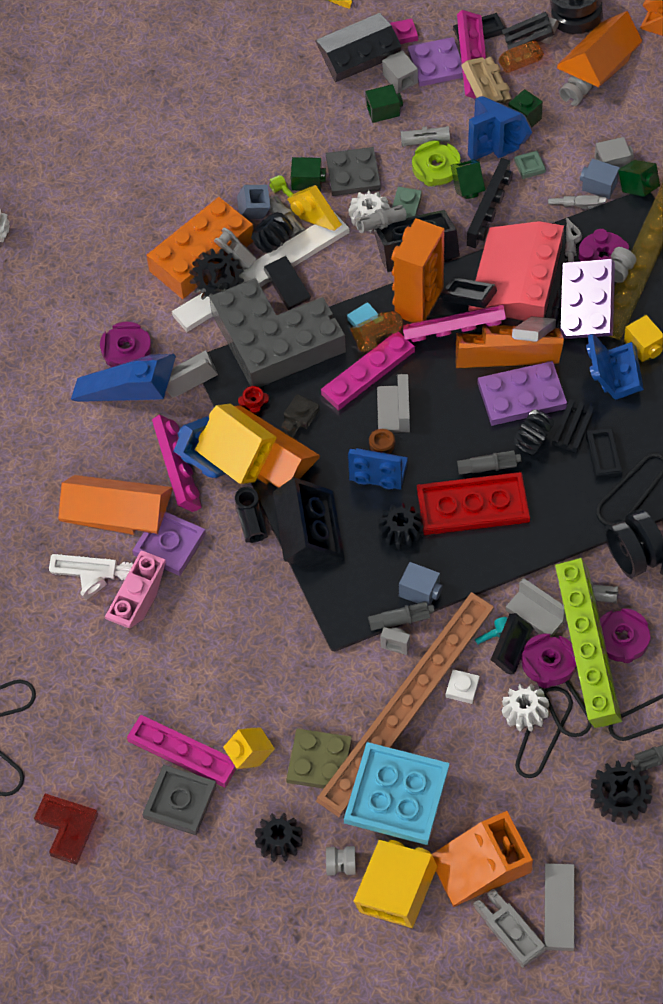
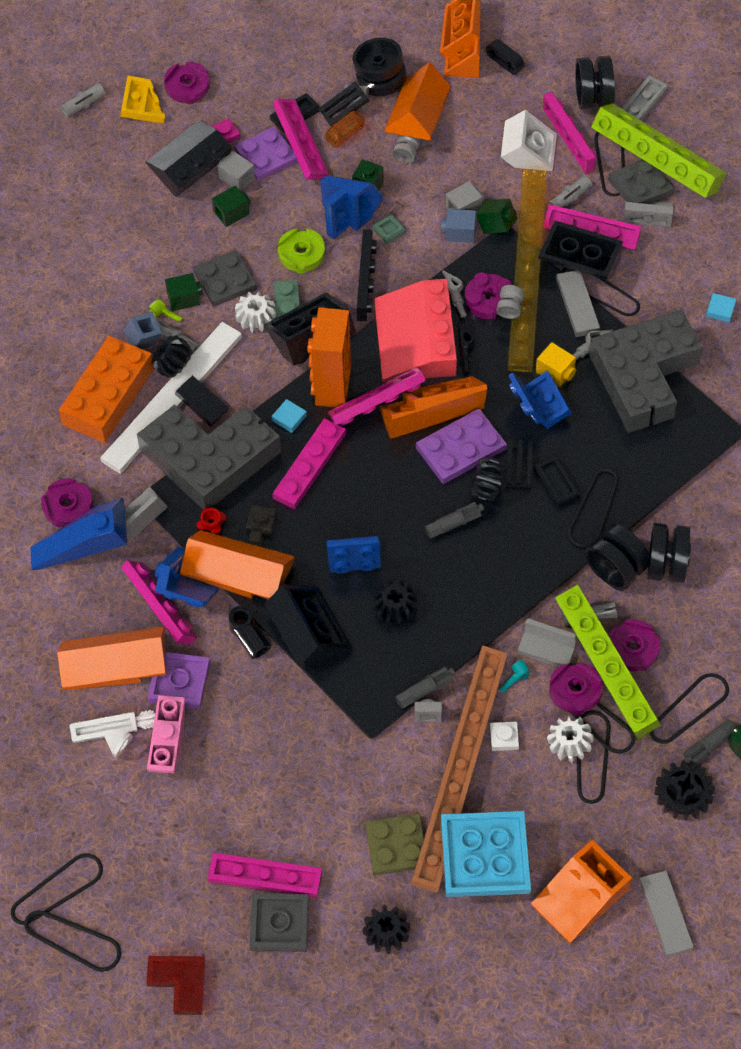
camera: 20 degrees left, 0 degrees up
(205, 273) = (134, 412): black gear -> none
(235, 443) = (213, 567): yellow brick -> none
(238, 250) = (144, 381): light grey bar -> none
(248, 748) = (328, 853): yellow brick -> none
(314, 208) = (203, 323): yellow wing -> none
(340, 860) = (452, 933): light grey wheel -> none
(375, 327) = (303, 421): clear orange leg -> none
(381, 218) = (272, 316): light grey pin -> none
(382, 441) = (347, 527): dark orange tile -> none
(394, 406) = (347, 491): light grey panel -> none
(395, 883) = (511, 938): yellow brick -> none
(420, 584) = (433, 652): sand blue brick -> none
(425, 135) = (281, 226): light grey pin -> none
(468, 178) = (338, 257): dark green brick -> none
(469, 292) = (379, 364): black tile -> none
(473, 503) = (453, 562): red tile -> none
(486, 79) = (322, 159): tan plate -> none
(511, 643) = (536, 683): black tile -> none
(511, 929) = (630, 948): light grey hinge -> none
(533, 329) = (455, 382): tile -> none
(583, 201) = (449, 252): light grey hand -> none
(587, 298) = (492, 341): plate -> none

